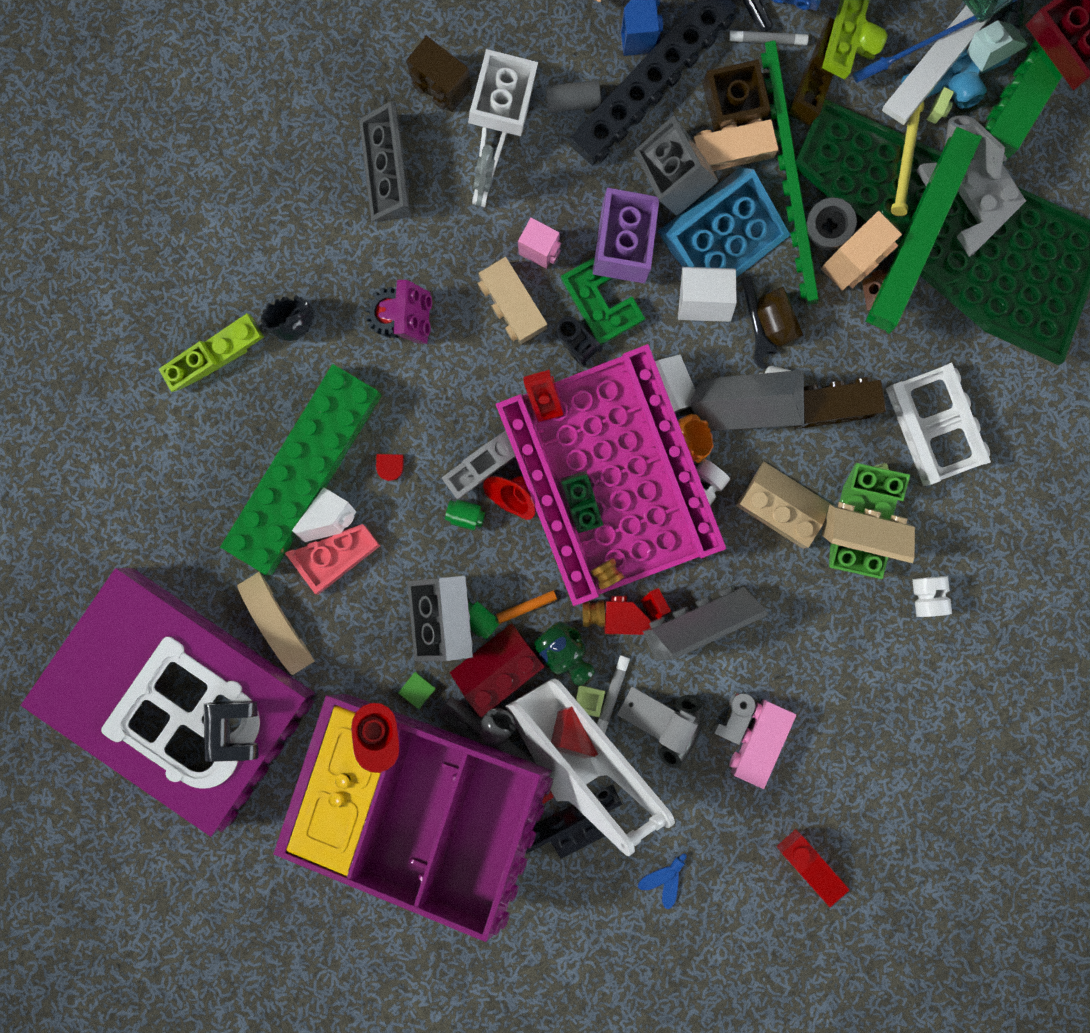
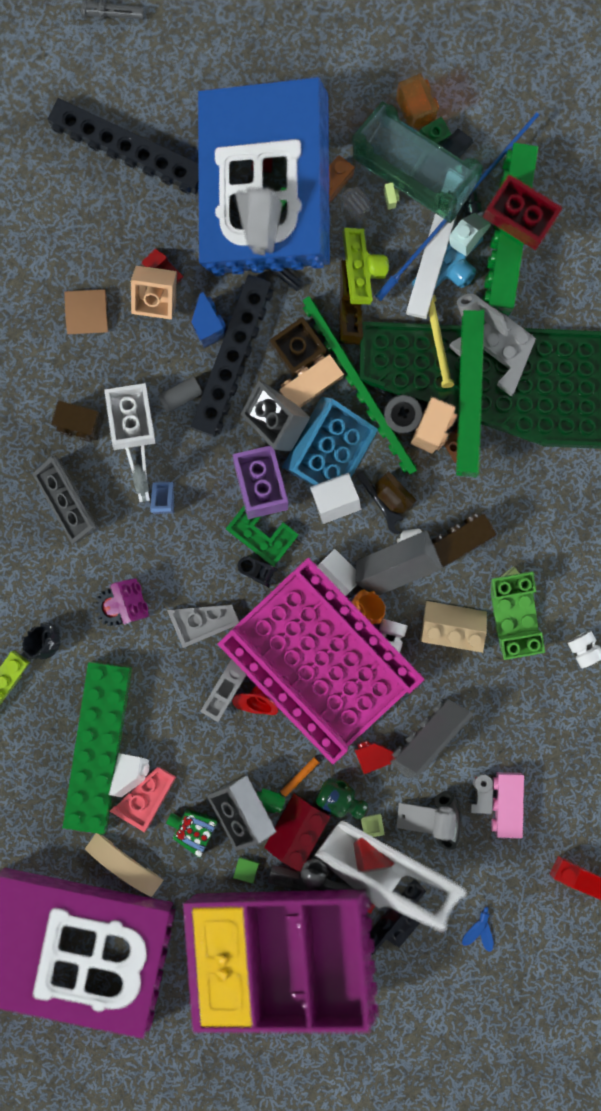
camera: 20 degrees left, 0 degrees up
(217, 731) = (117, 962): black connector -> none
(373, 616) = (192, 830): none -> torso
(375, 737) = (231, 921): red piece -> none
(389, 466) = (159, 716): red tile -> none
(464, 514) = (227, 729): green brick -> none
(485, 376) = (200, 623): none -> light grey wing
(500, 211) = (162, 498): none -> medium blue slope
(511, 301) = (197, 562): tan brick -> none
(539, 243) = (201, 513): bright pink brick -> none
(543, 395) = (249, 623): red slope -> none
(582, 501) = (308, 686): dark green slope -> none
(593, 613) = (349, 762): pearl gold wheel -> none
(607, 574) = (347, 731): pearl gold wheel -> none
(613, 693) = (387, 814): light grey bar -> none
(655, 605) = (391, 738): red tile -> none
(762, 37) = (303, 292): light grey bar -> none
(870, 532) = (521, 624): tan slope -> none
(920, 430) = (530, 531): white window -> none
(941, 106) = (448, 292): yellowish green plate -> none

